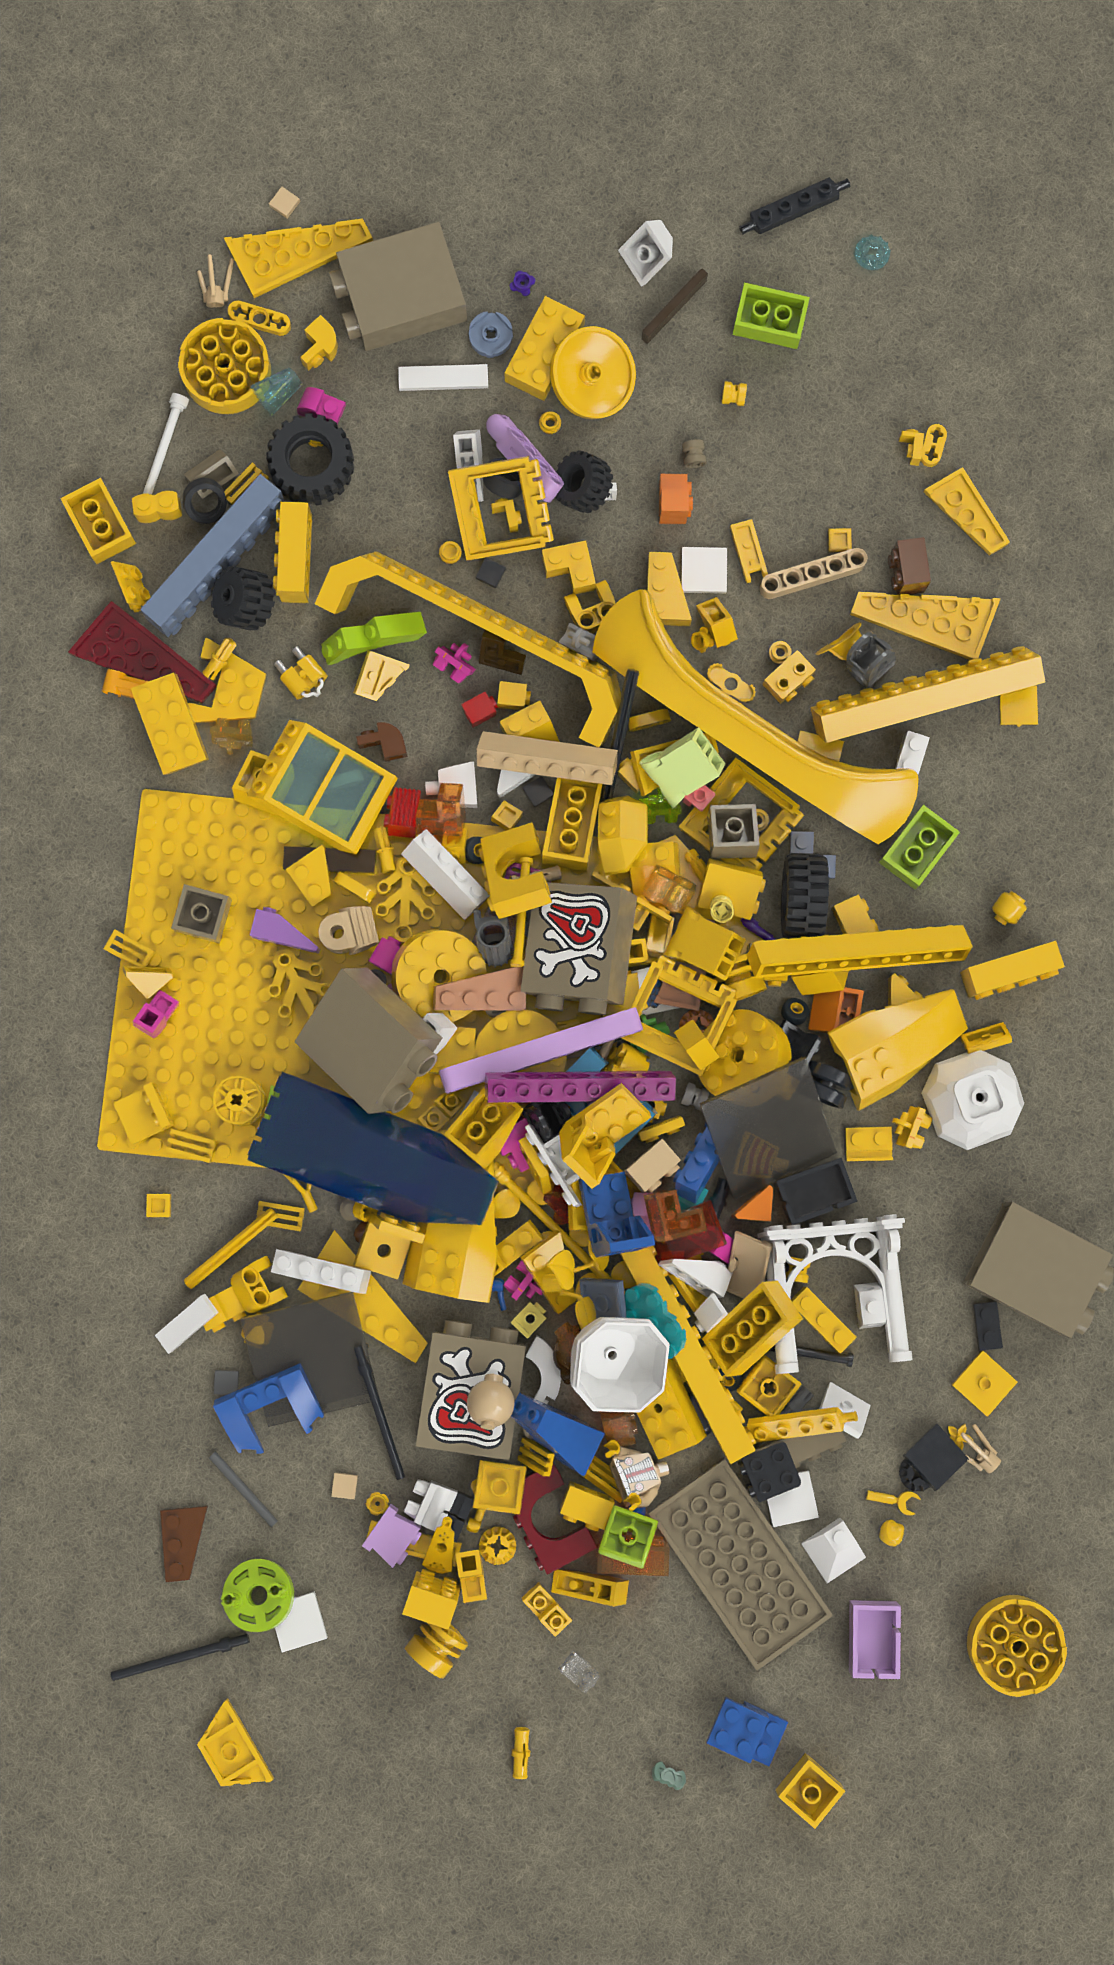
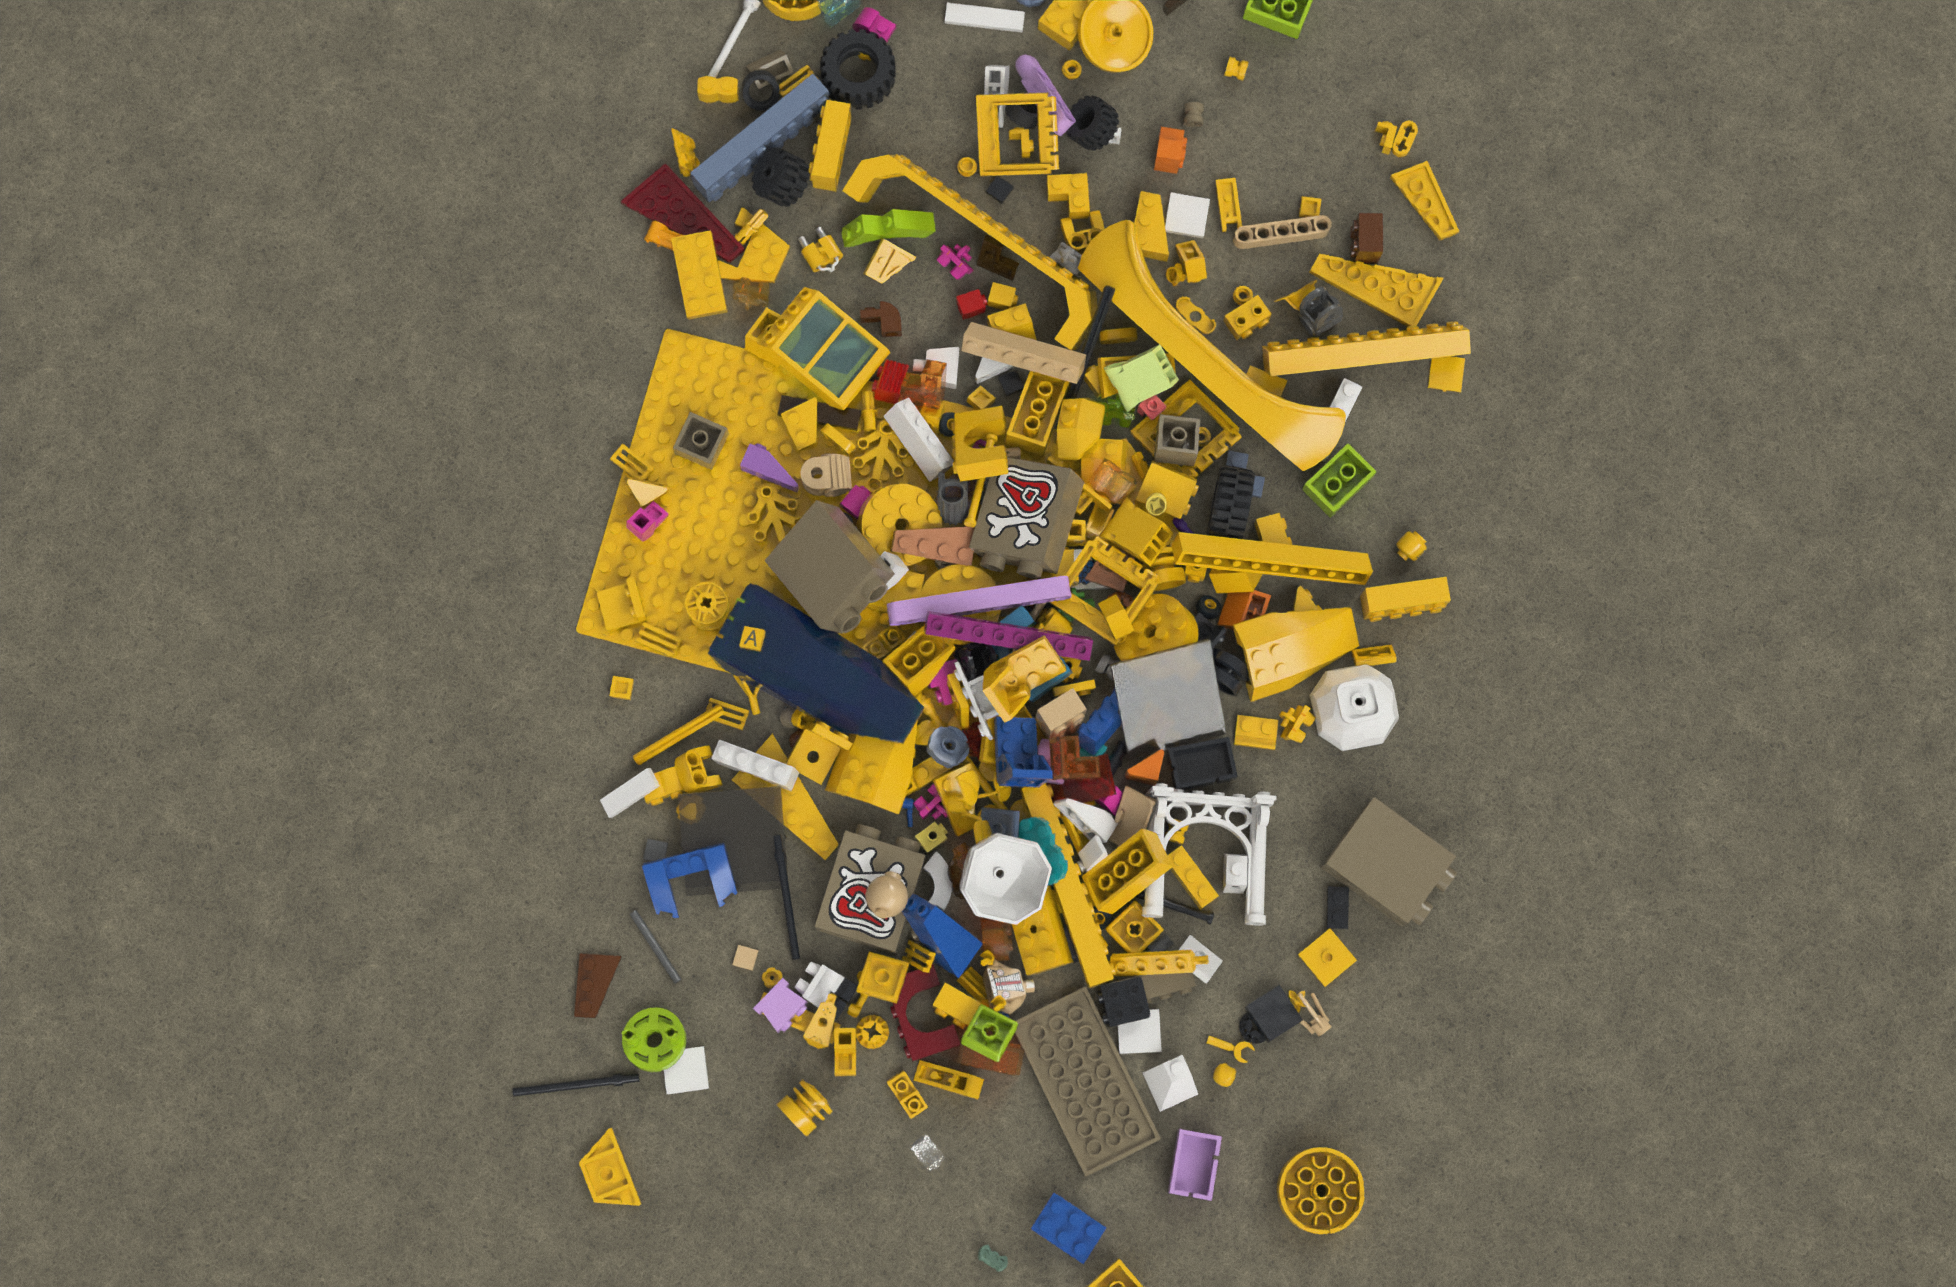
camera: 10 degrees right, 5 degrees down
(98, 521) = (665, 93): yellow brick -> none
(294, 1138) = (752, 638): none -> yellow tile
(432, 1599) = (807, 1061): yellow brick -> none
(520, 1223) = (958, 743): none -> sand blue plate
(520, 1753) = (864, 1217): yellow pin -> none

